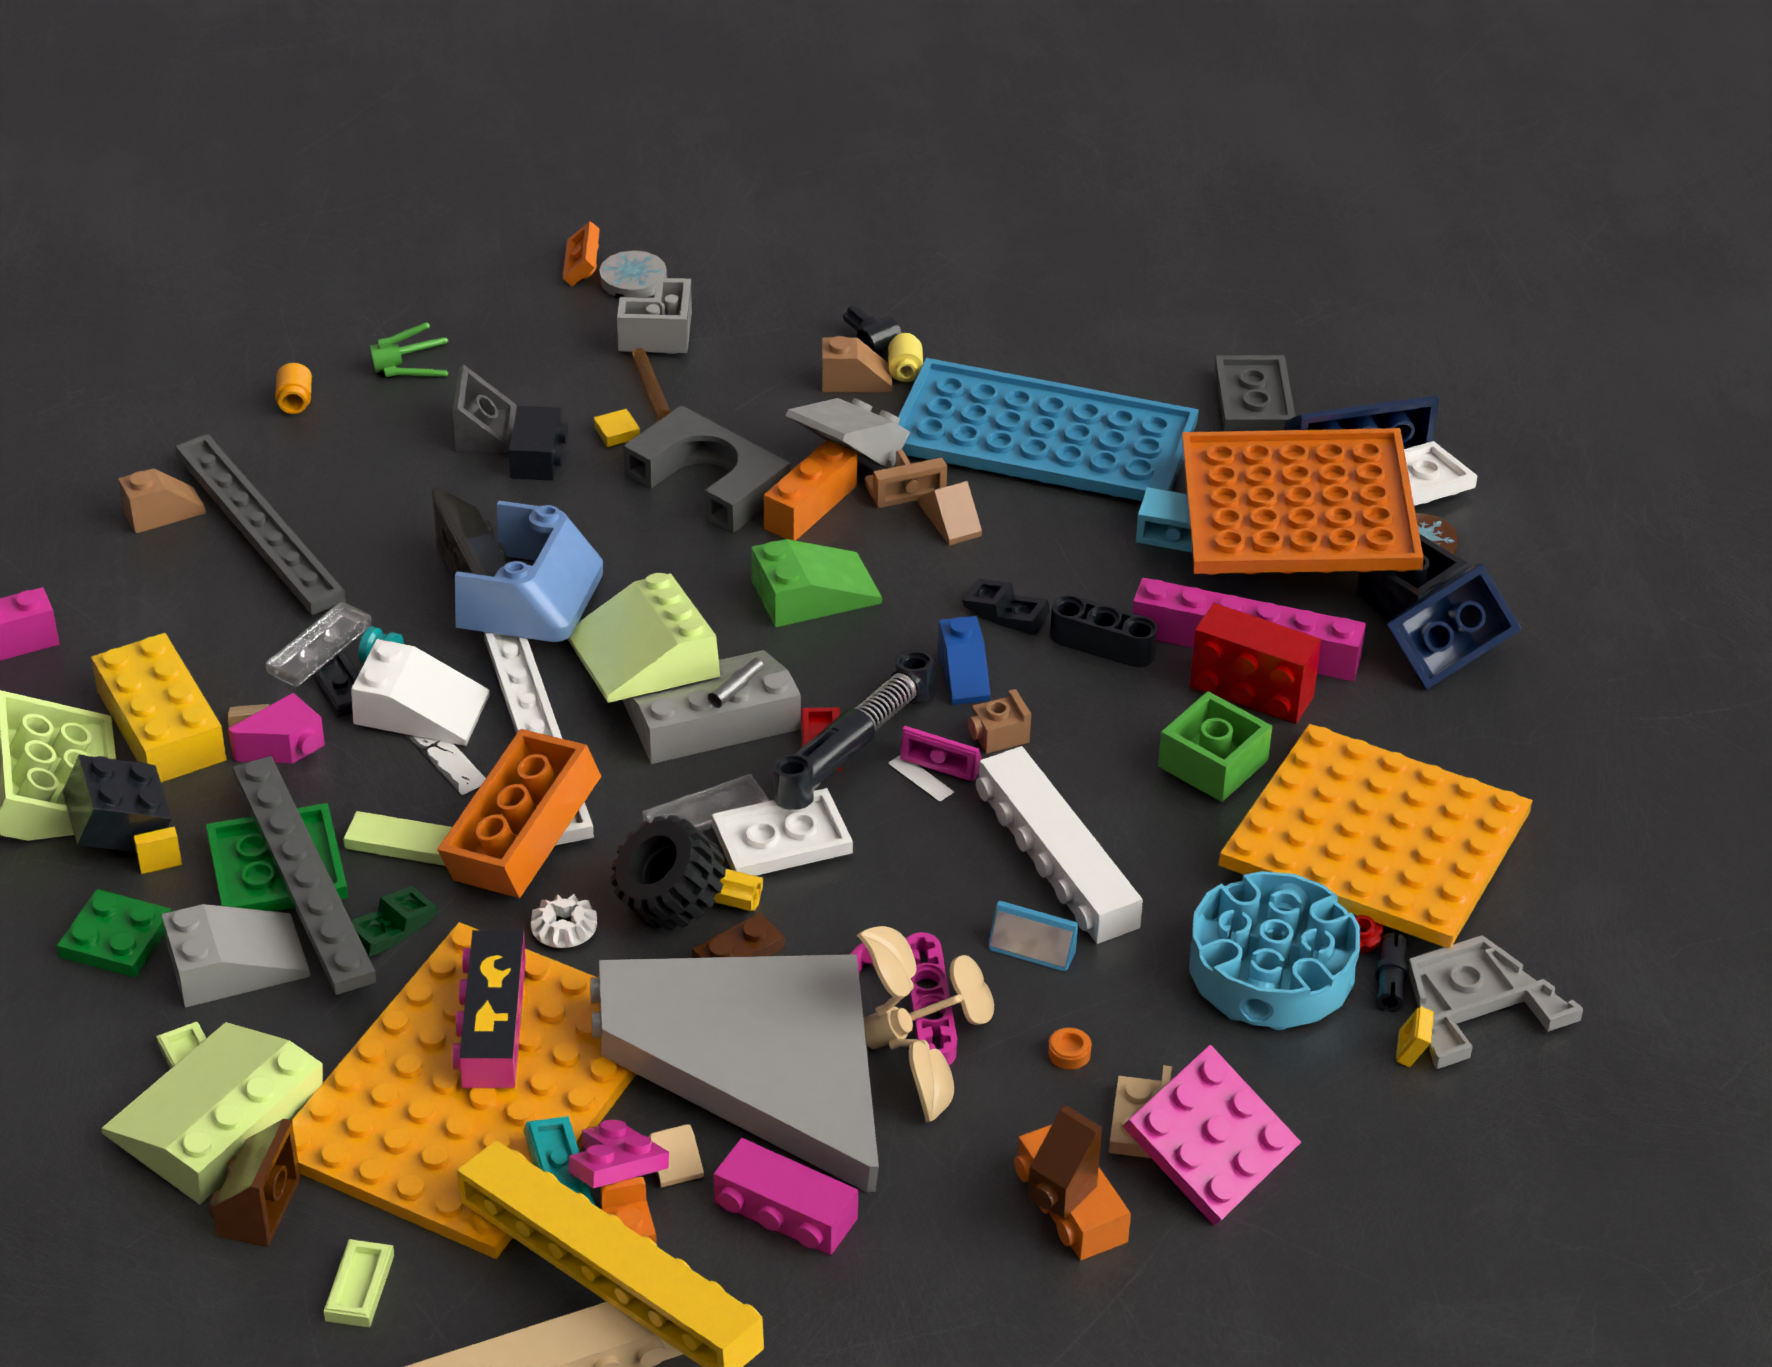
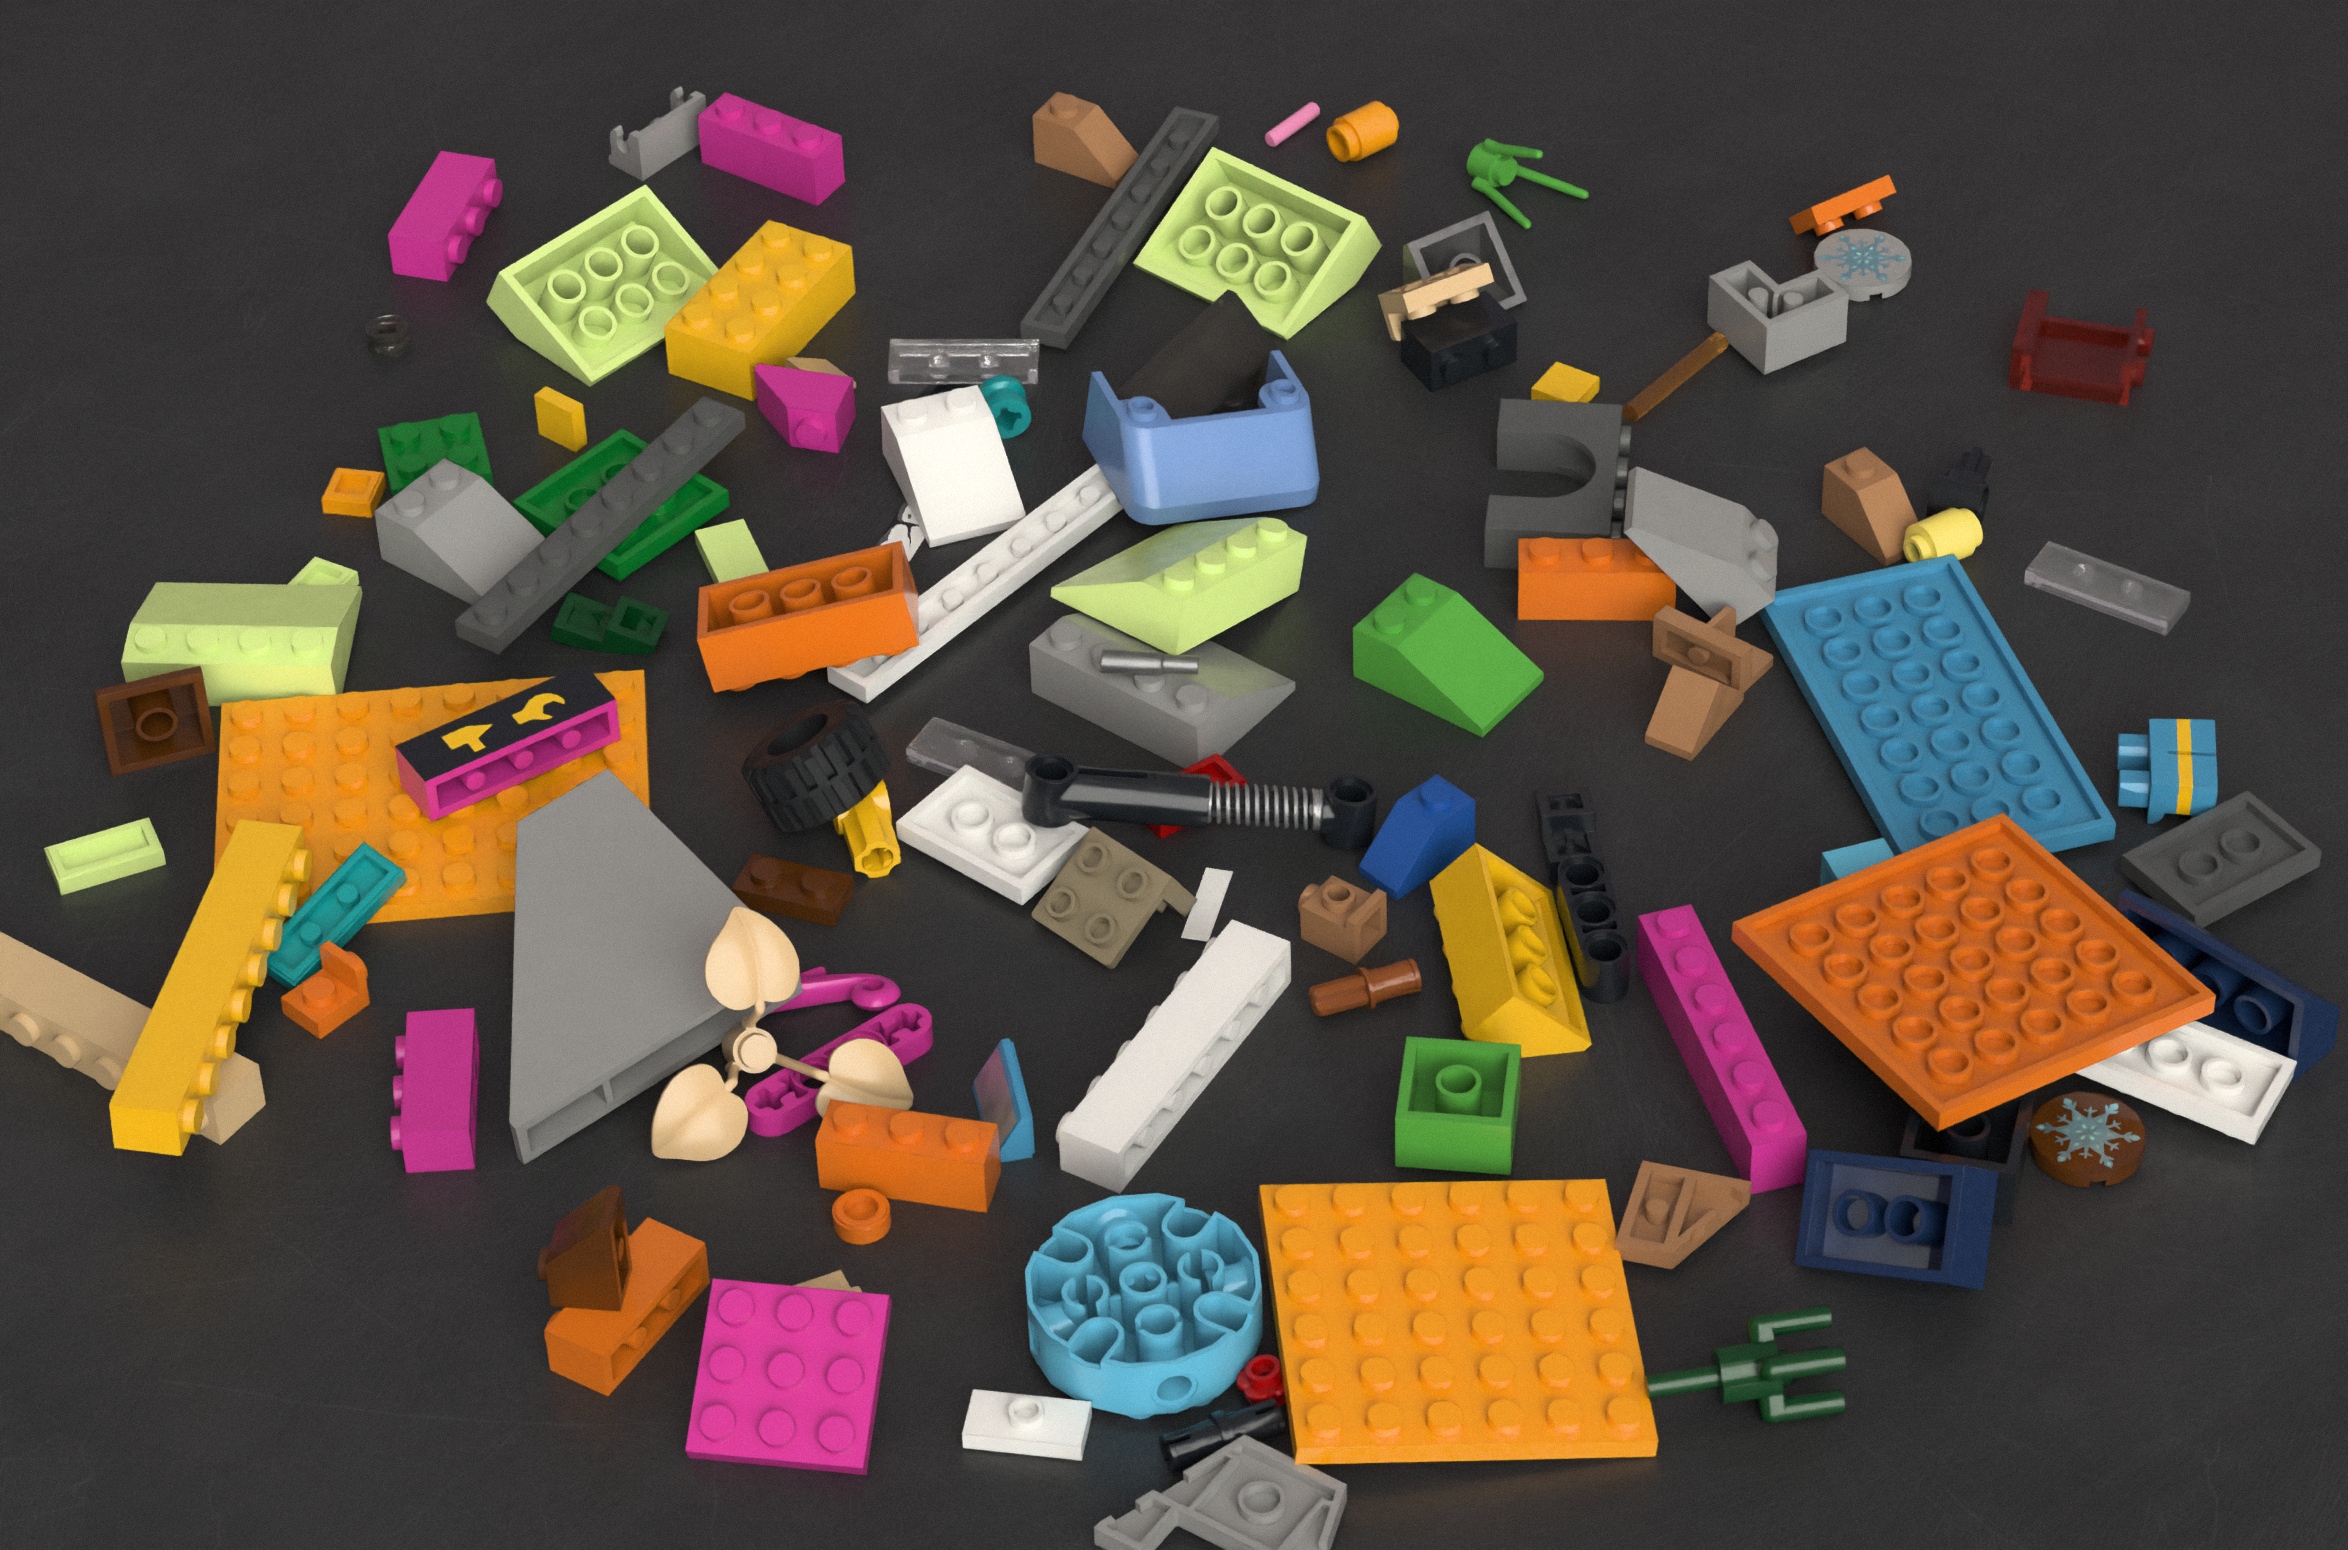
camera: 60 degrees right, 0 degrees up
(104, 989) = (354, 492): none -> light orange tile
(114, 802) = (580, 348): black brick -> none
(239, 414) = (1292, 124): none -> bright pink piece
(352, 475) = (1263, 240): none -> yellowish green slope
(506, 422) = (1432, 292): none -> tan bracket
(563, 933) = (728, 756): white gear -> none
(616, 1155) = (391, 944): dark pink plate -> none
(683, 1155) = (441, 983): tan slope -> none
(800, 241) = (2078, 355): none -> clear red panel
(893, 810) = (1107, 898): none -> dark tan bracket
(940, 754) = (1242, 886): dark pink slope -> none
(995, 326) = (2107, 588): none -> clear tile
(1049, 997) = (909, 1155): none -> orange brick
(1065, 742) = (1365, 988): none -> dark orange axle
(1096, 675) = (1507, 957): none -> yellow slope
(1175, 372) = (2168, 768): none -> dark azure hips
(1255, 662) = (1635, 1070): red brick -> none
(1314, 1053) = (1027, 1424): none -> white plate
(1357, 710) = (1676, 1212): none -> medium nougat wing
(1414, 1036) = (1114, 1493): yellow tile -> none
(1517, 733) = (1762, 1369): none -> dark green plant

